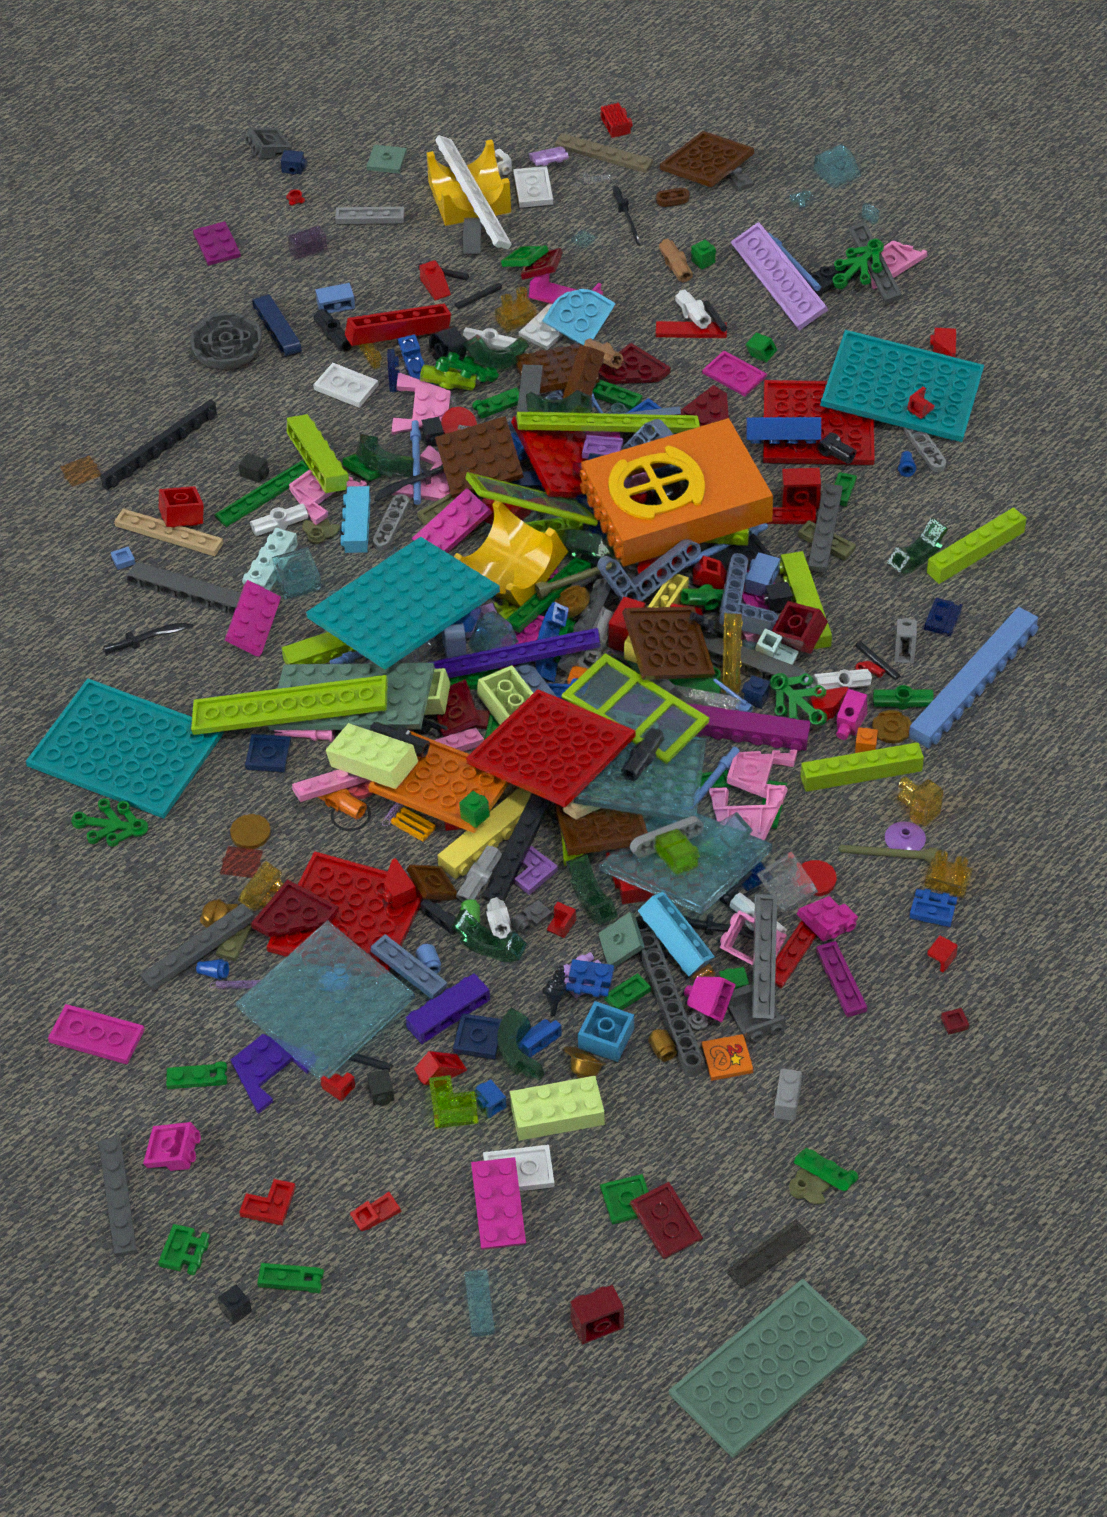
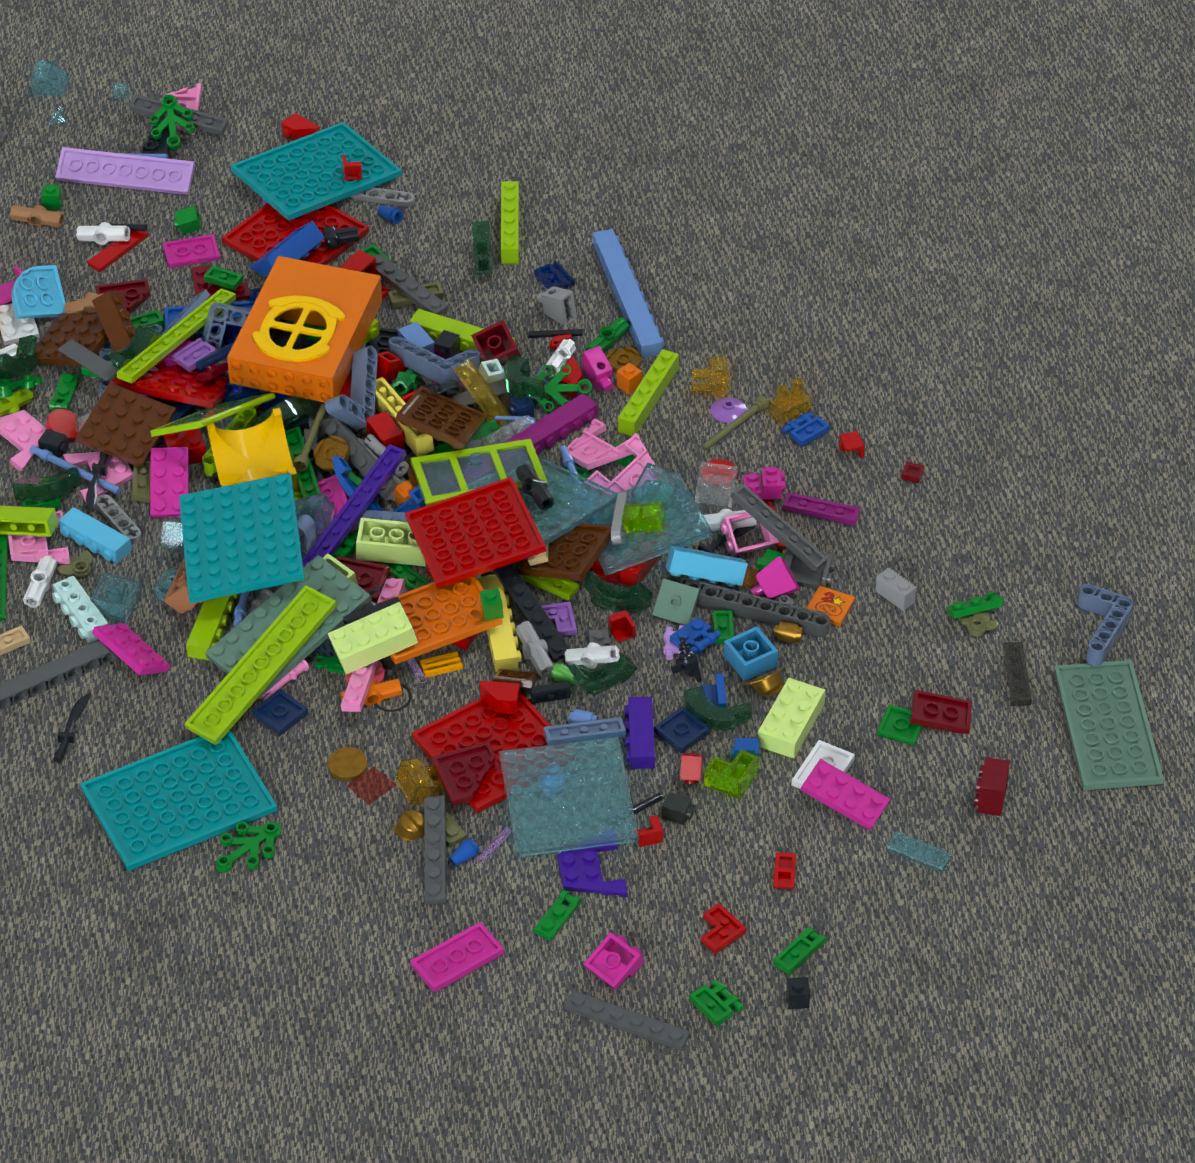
camera: 55 degrees left, 5 degrees down
(712, 408) = (223, 278): none -> green plate
(775, 660) = (517, 380): none -> clear green arch
(896, 1291) = (1117, 613): none -> sand blue beam

